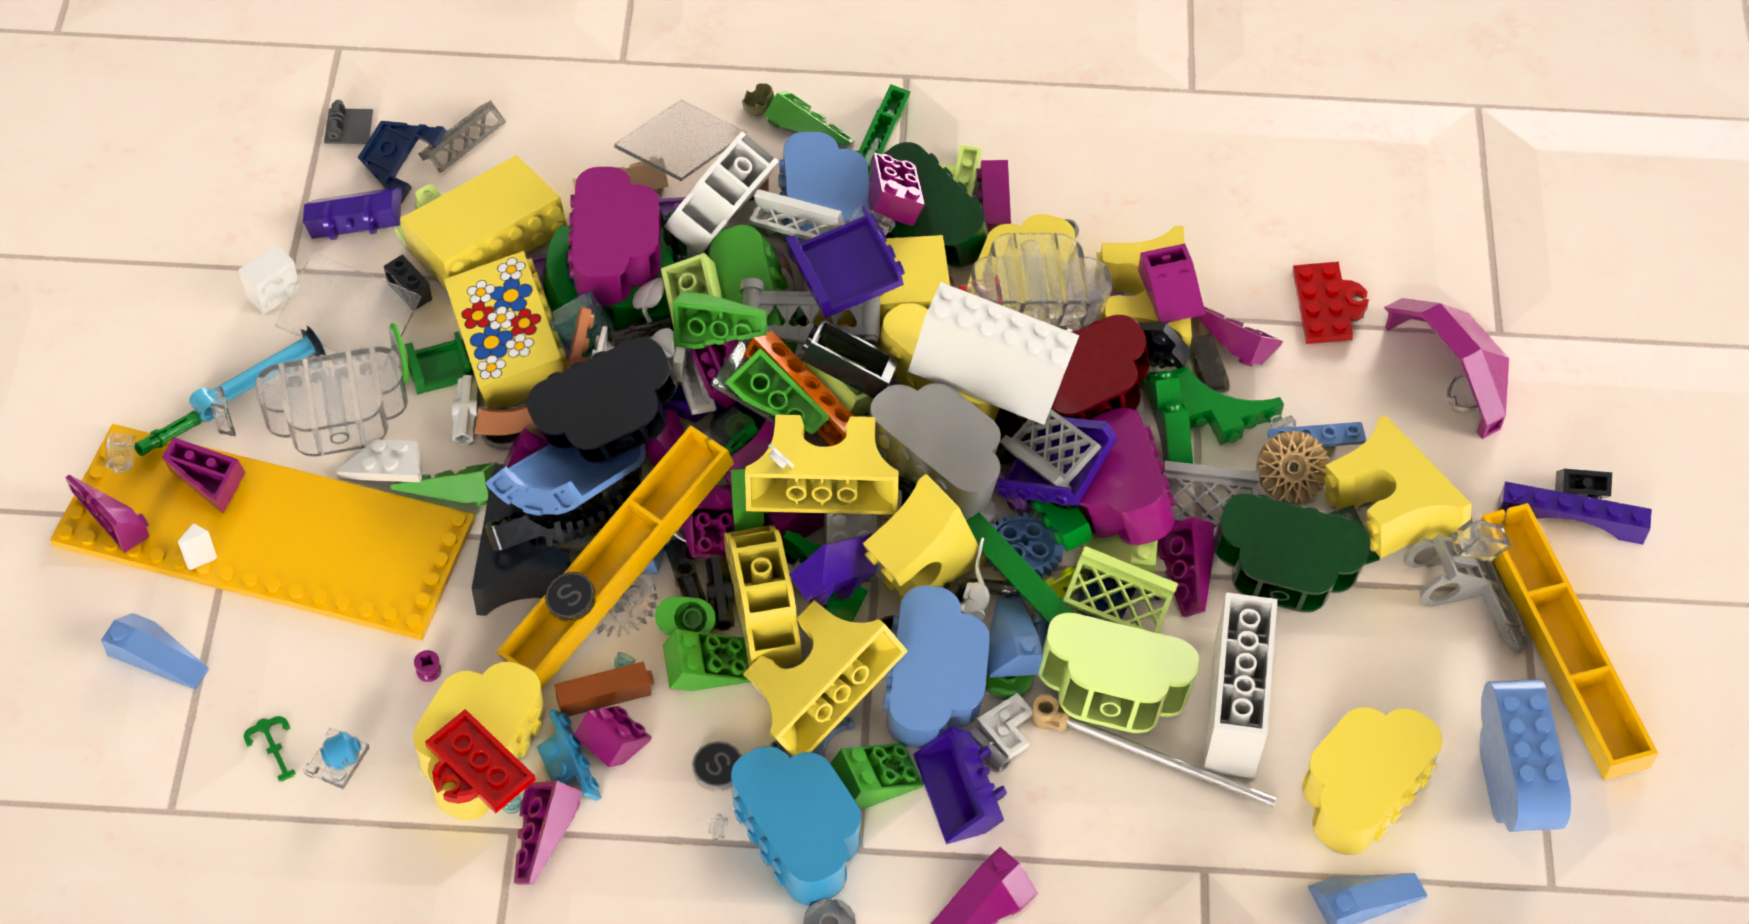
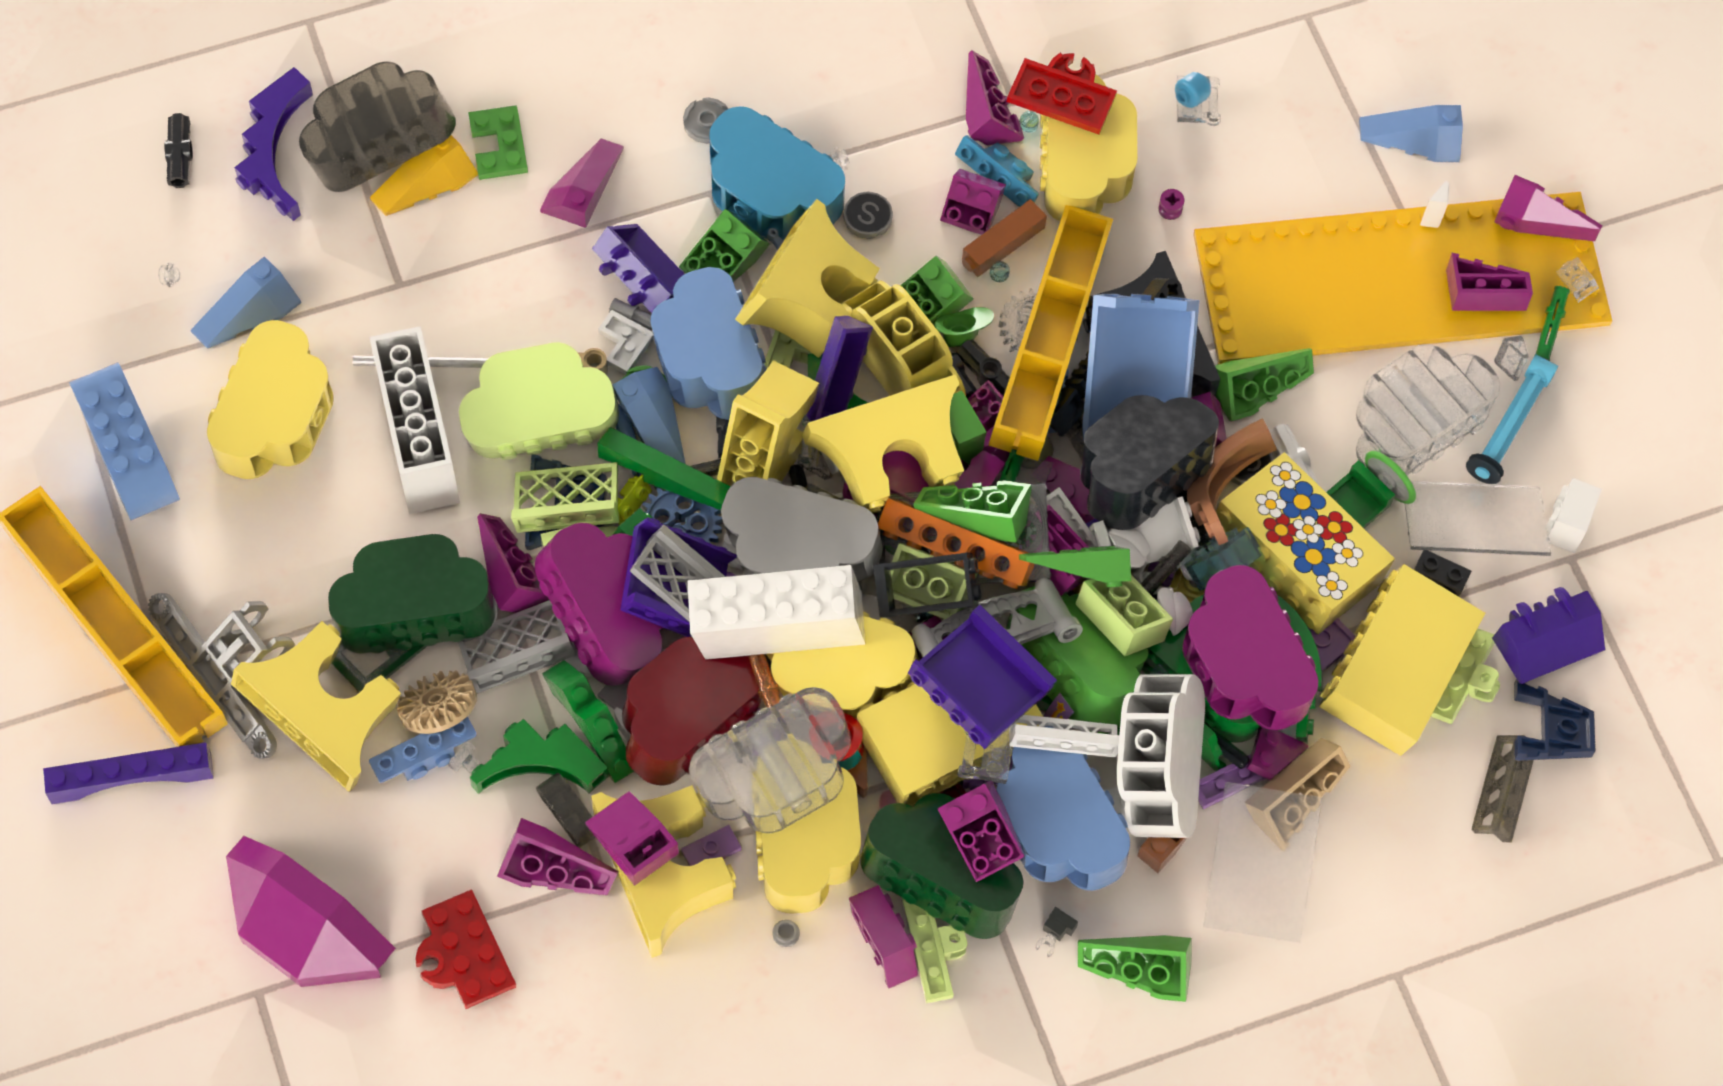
camera: 155 degrees right, 10 degrees up
(264, 725) = (1278, 108): green piece -> none
(347, 125) = (1632, 753): dark grey hinge -> none
(384, 462) = (1331, 375): white wing -> none
(570, 596) = (1070, 269): black tile -> none
(759, 100) = (1210, 965): olive hair -> none
(779, 458) = (931, 388): white plate -> none
(884, 123) = (1049, 967): green slope -> none
(976, 594) = (704, 446): white animal -> none
(1164, 345) = (621, 781): black plate -> none
(1480, 540) = (216, 666): clear piece -> none
(1584, 483) = (124, 807): black brick -> none

